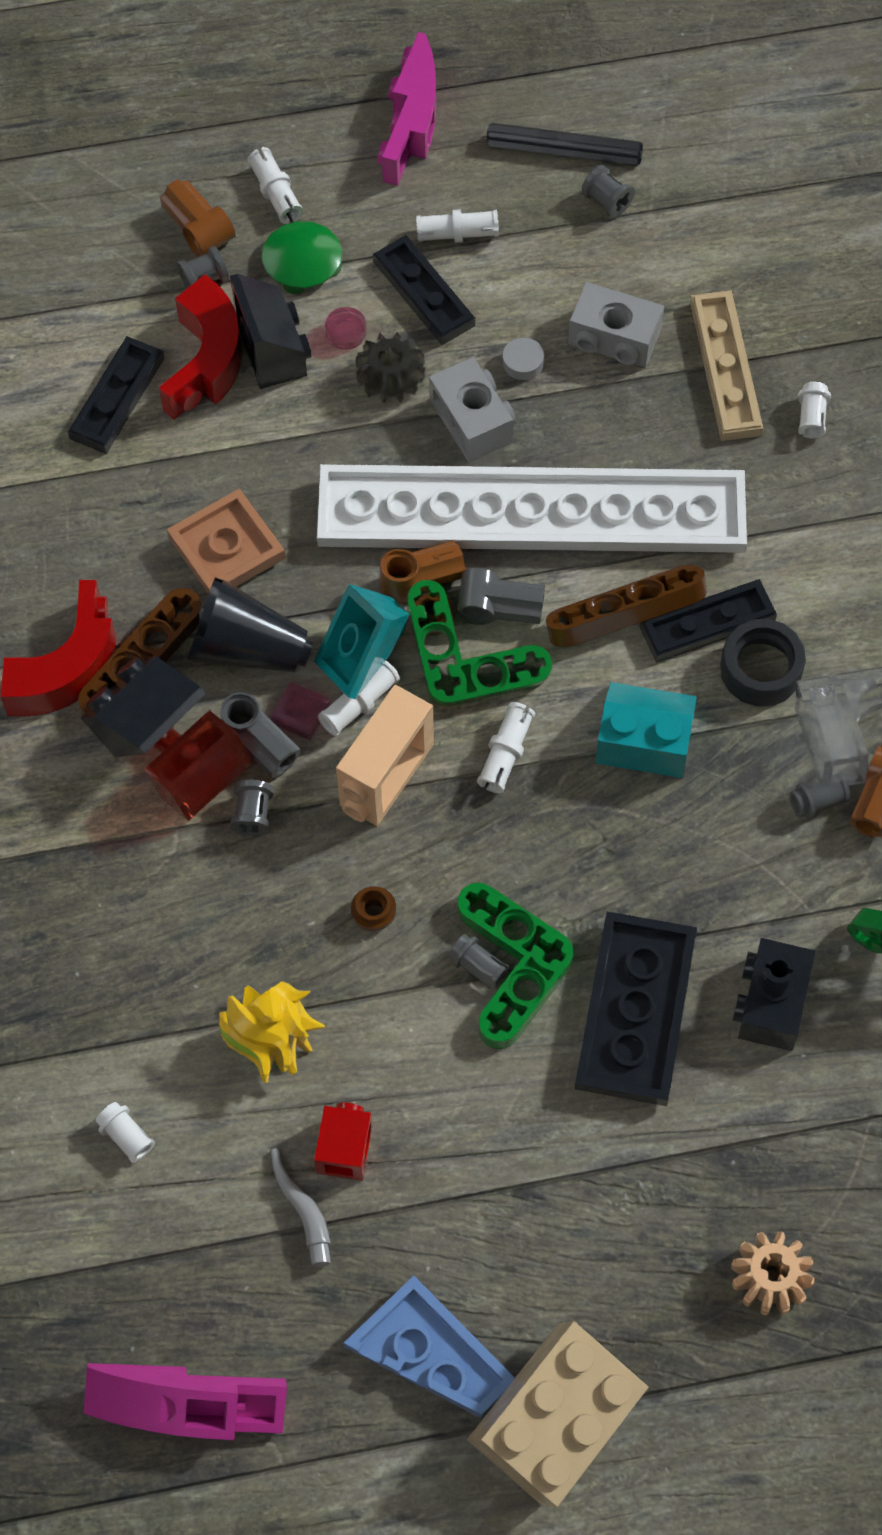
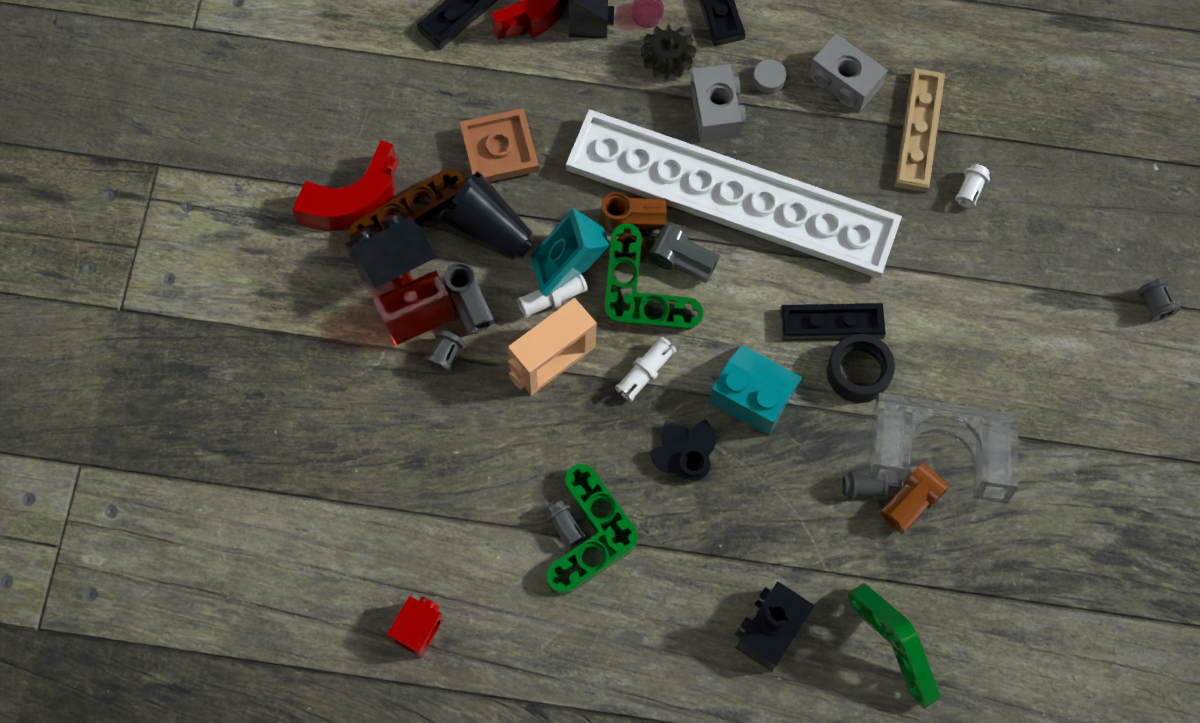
camera: 15 degrees right, 5 degrees up
(124, 1131) = (263, 562): white pin -> none
(268, 1027) = (392, 522): yellow hair -> none
(299, 710) = (505, 289): clear pink tile -> none
(313, 1221) = (373, 675): light grey animal -> none
(373, 896) = (503, 447): reddish brown plate -> none
(585, 824) = (685, 446): none -> black plate
(636, 1008) = (667, 600): black plate -> none
(668, 591) = (813, 291): reddish brown beam -> none

